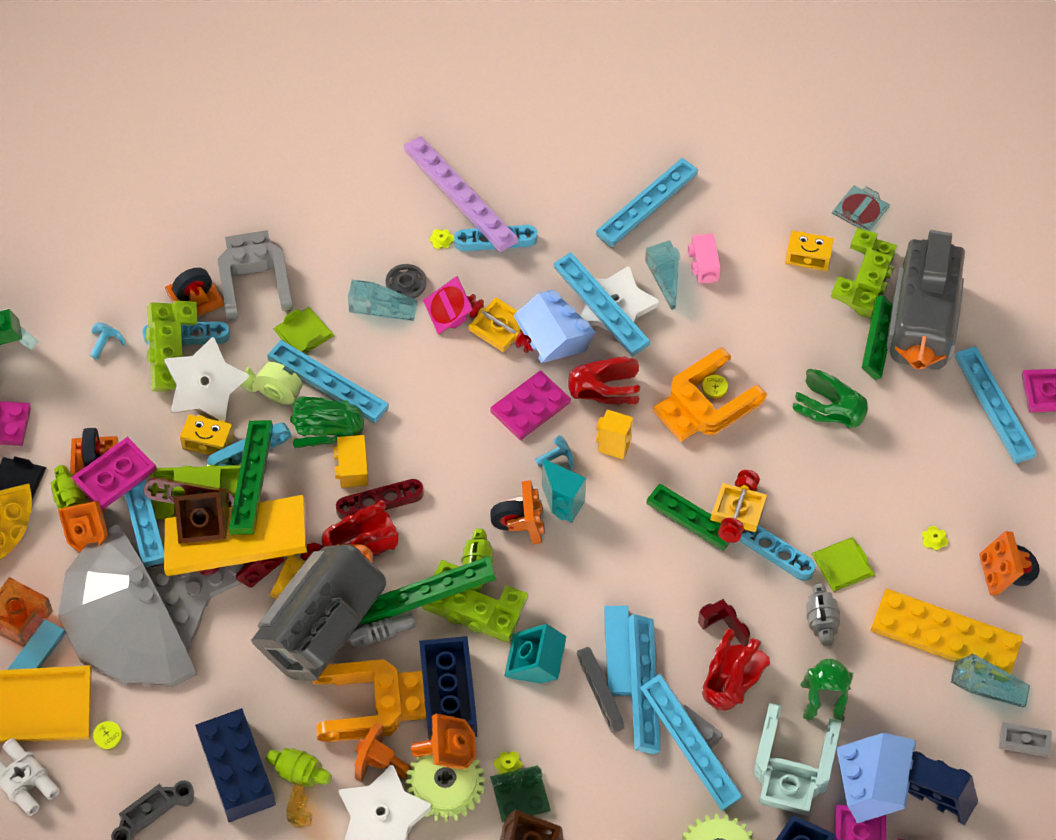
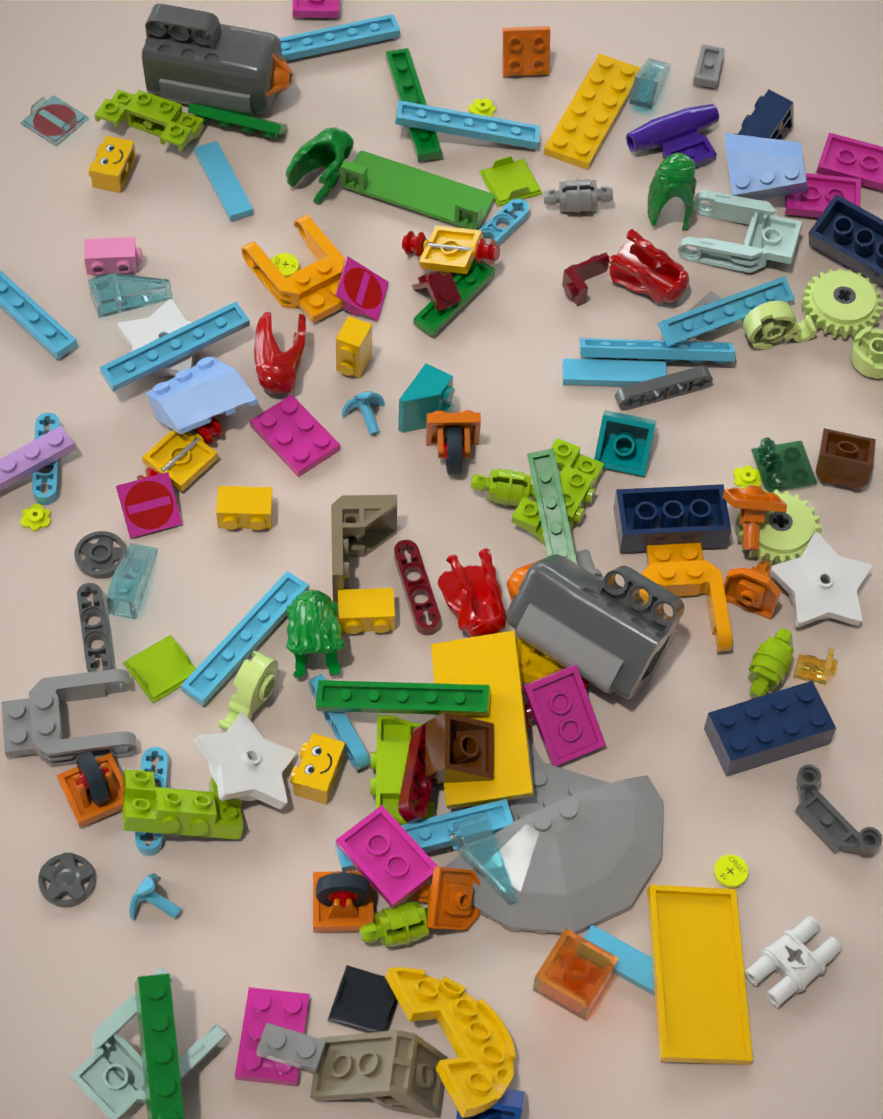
camera: 90 degrees left, 0 degrees up
(112, 536) = (480, 850): none -> clear light blue slope
(124, 287) = (66, 879): none -> dark grey wheel
(243, 600) = (564, 715): none -> dark pink plate
(333, 282) = (92, 632): none -> dark grey beam
(420, 433) = (363, 518): none -> dark tan bracket
(450, 371) = (244, 507): none -> yellow brick
(677, 781) = (775, 322): none -> yellowish green piece
(688, 441) = (361, 290): none -> piece
(688, 495) = (440, 287): none -> dark red bracket
(806, 334) = (223, 181): none -> medium azure tile
(816, 484) = (416, 190): none -> bright green bracket
(897, 518) = (467, 124): none -> medium azure plate
(918, 705) = (678, 134): none -> dark purple plate
(923, 476) = (409, 90): none -> green plate

